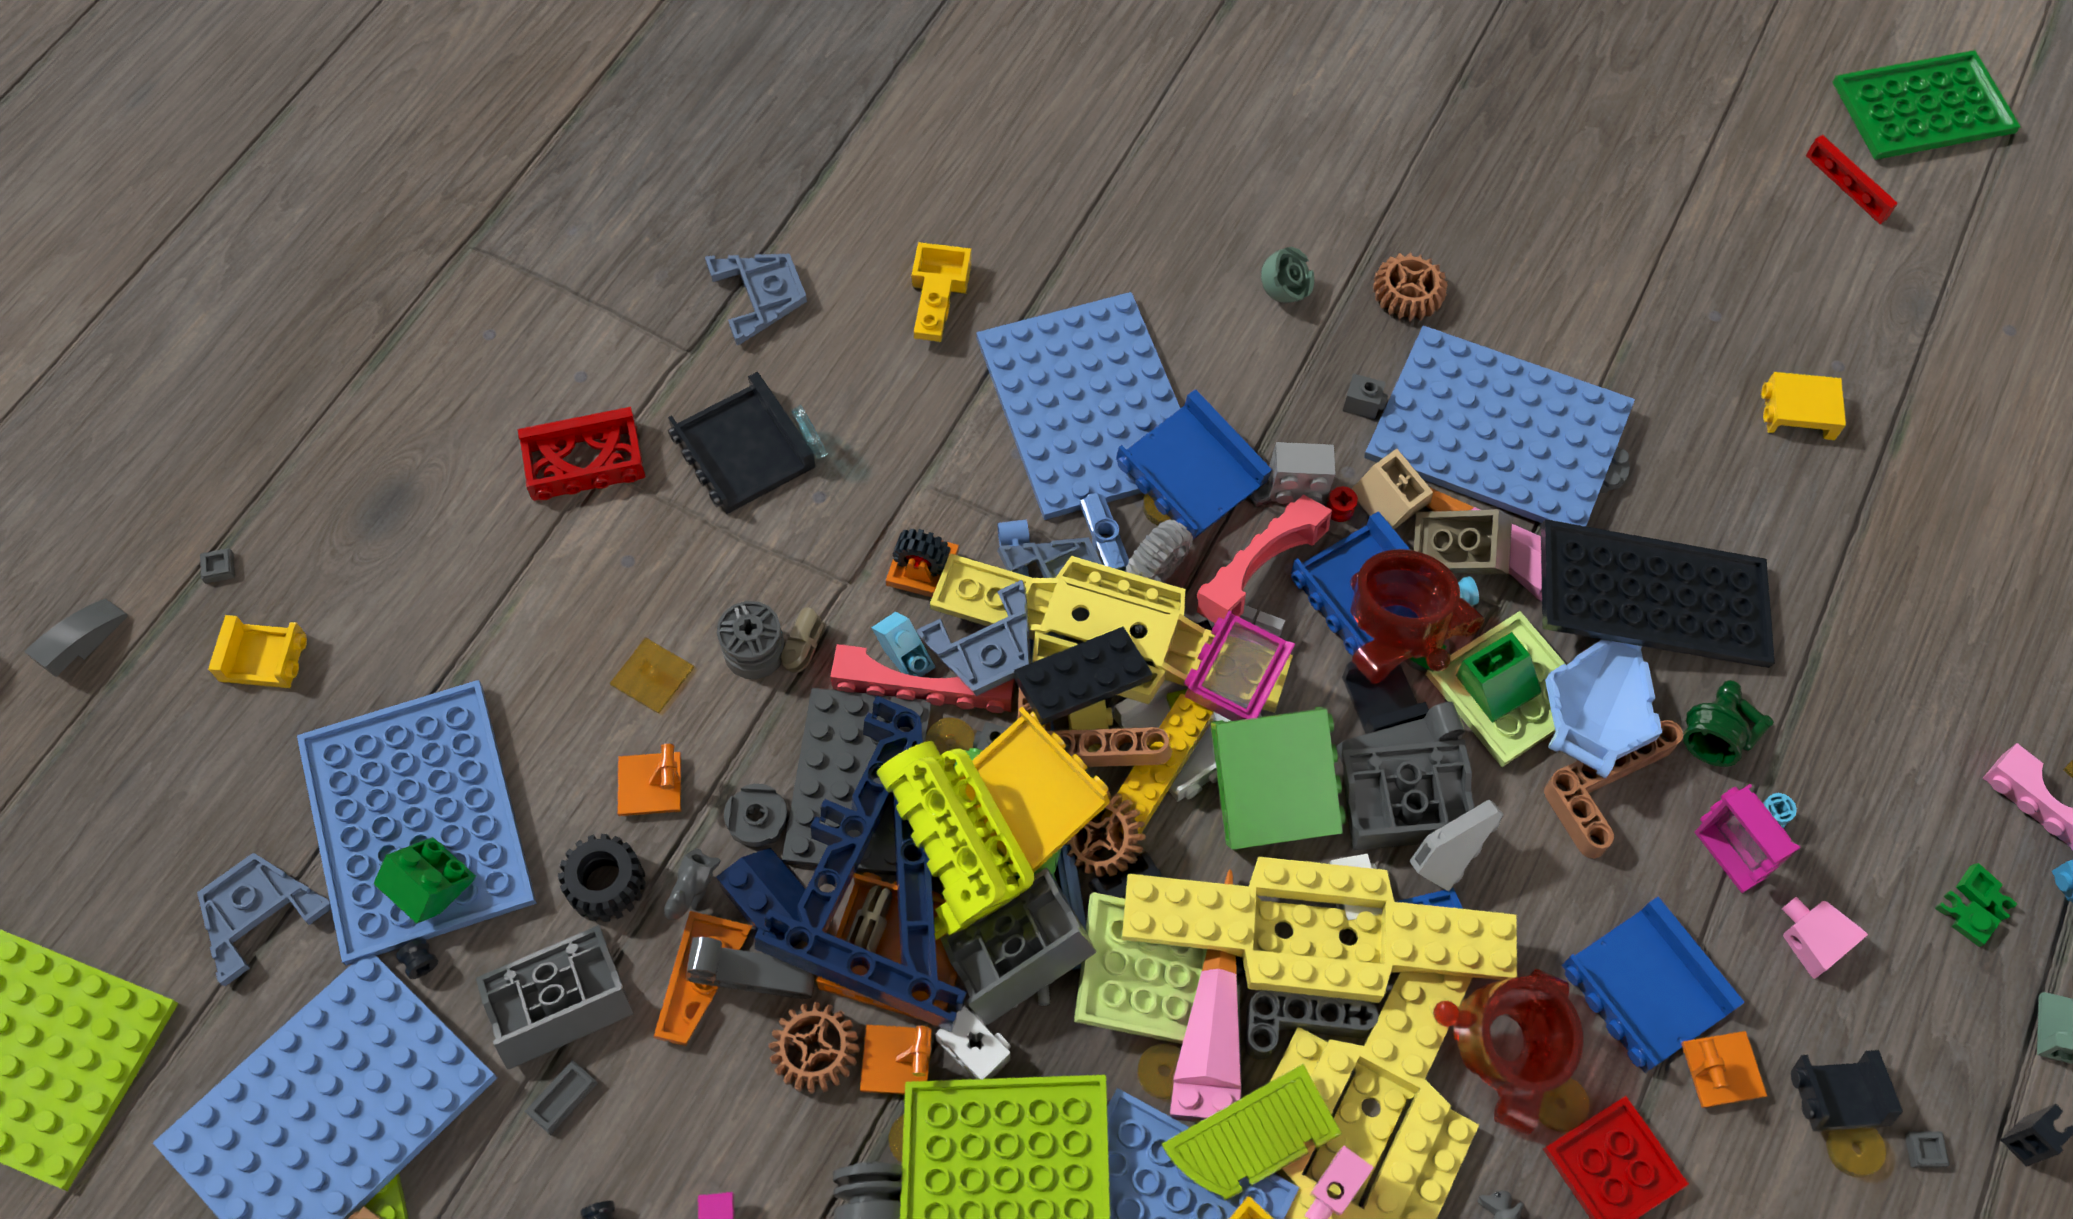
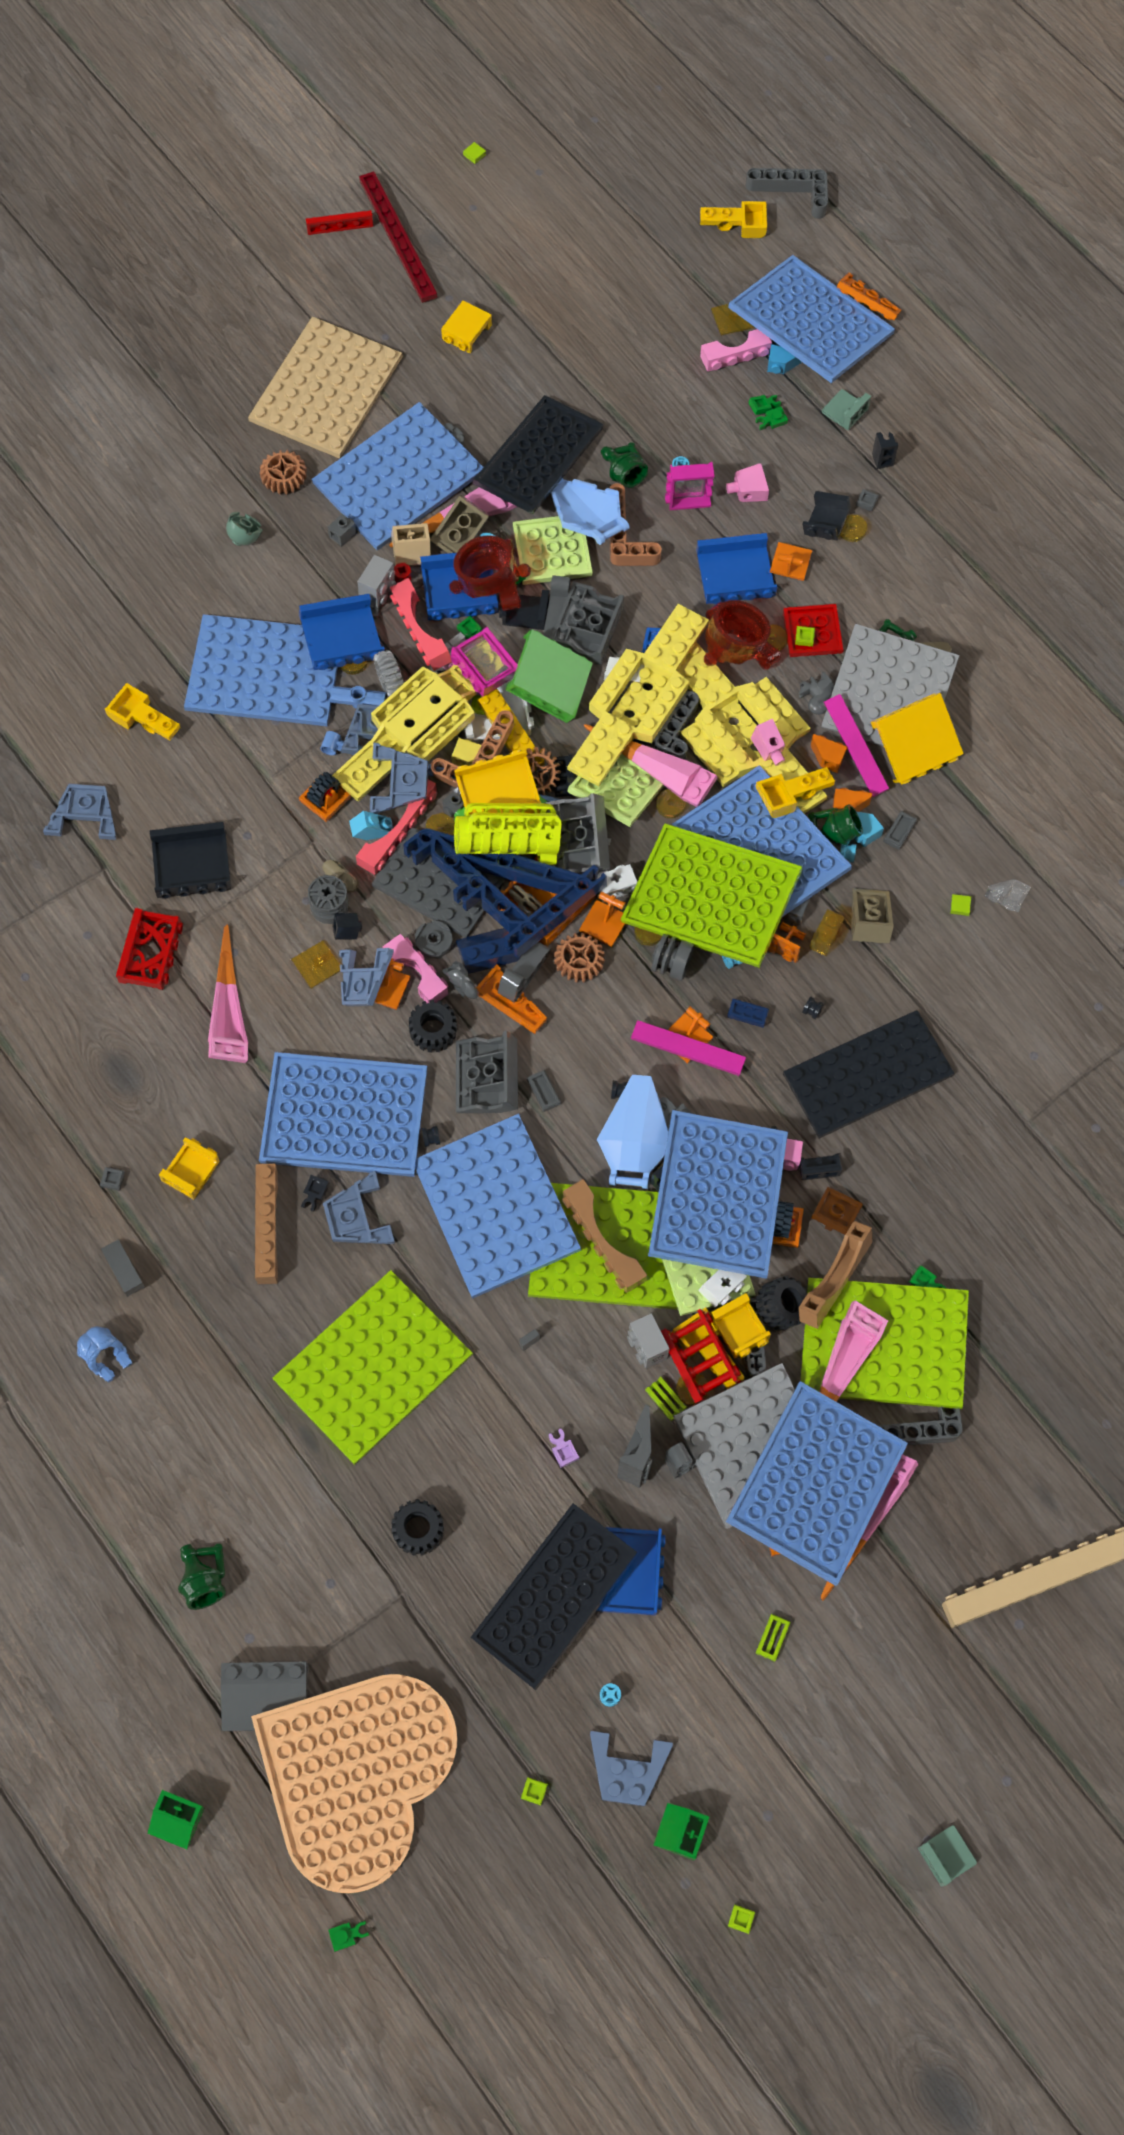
camera: 65 degrees left, 5 degrees up
(143, 811) = (265, 1224): none -> medium nougat arch
(275, 835) = (315, 1189): none -> black plate
(423, 879) = (389, 1113): green slope -> none
(491, 603) = (227, 1031): none -> bright pink plate
(633, 743) = (362, 984): none -> sand blue wing
(713, 778) = (431, 985): none -> bright pink arch
(720, 683) = (346, 926): none -> black brick
(809, 432) = (207, 816): clear light blue tile -> none
(1082, 675) = (450, 734): black plate -> none
(1254, 1135) = (726, 770): lime piece -> none
(1306, 636) = (469, 627): none -> green tile
(1453, 846) = (627, 610): light grey slope -> none
(1500, 677) = (548, 547): green slope -> none
(1582, 280) = (325, 387): none -> tan plate
(1592, 1156) = (804, 636): none -> lime tile
(1883, 259) = (398, 237): none -> dark red plate
(1925, 104) = (311, 158): green plate -> none

